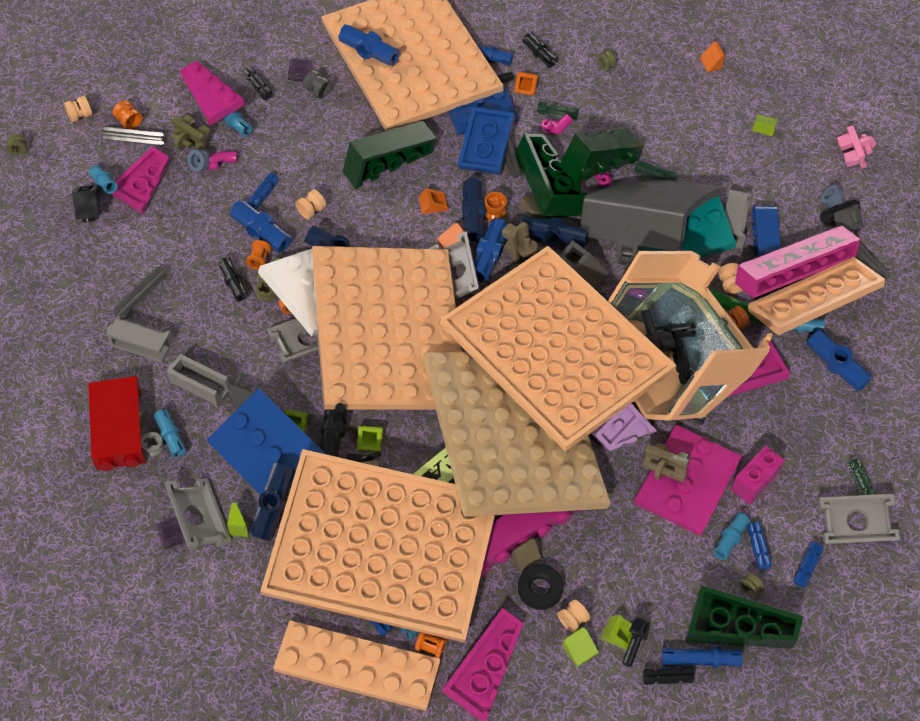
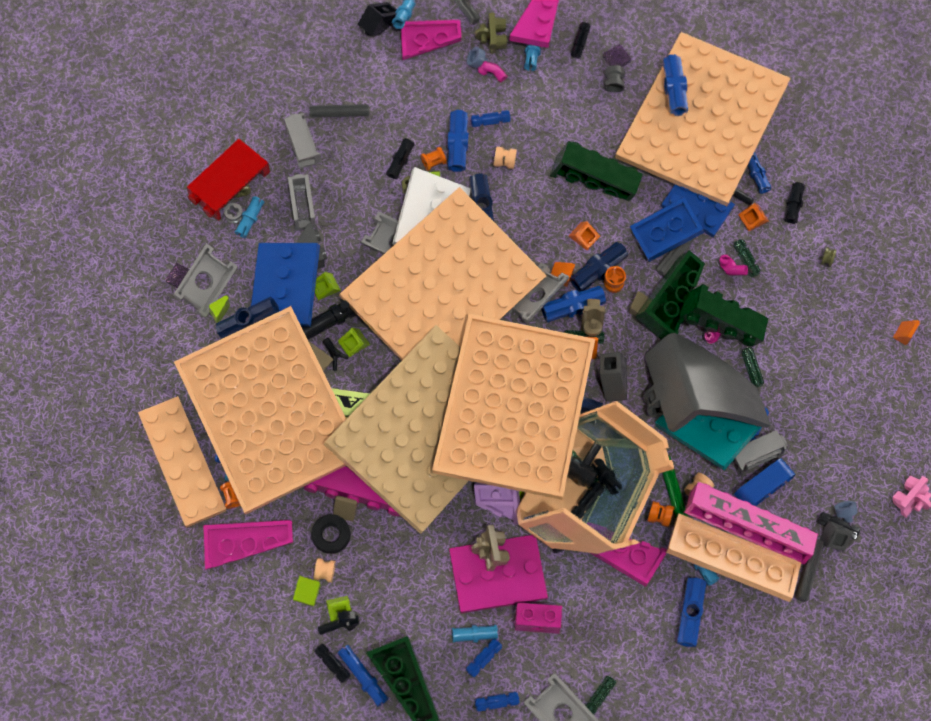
camera: 50 degrees right, 10 degrees up
(555, 231) = (627, 335): dark blue piece -> none
(752, 585) = (445, 673): olive bush -> none
(764, 125) = (876, 414): lime slope -> none

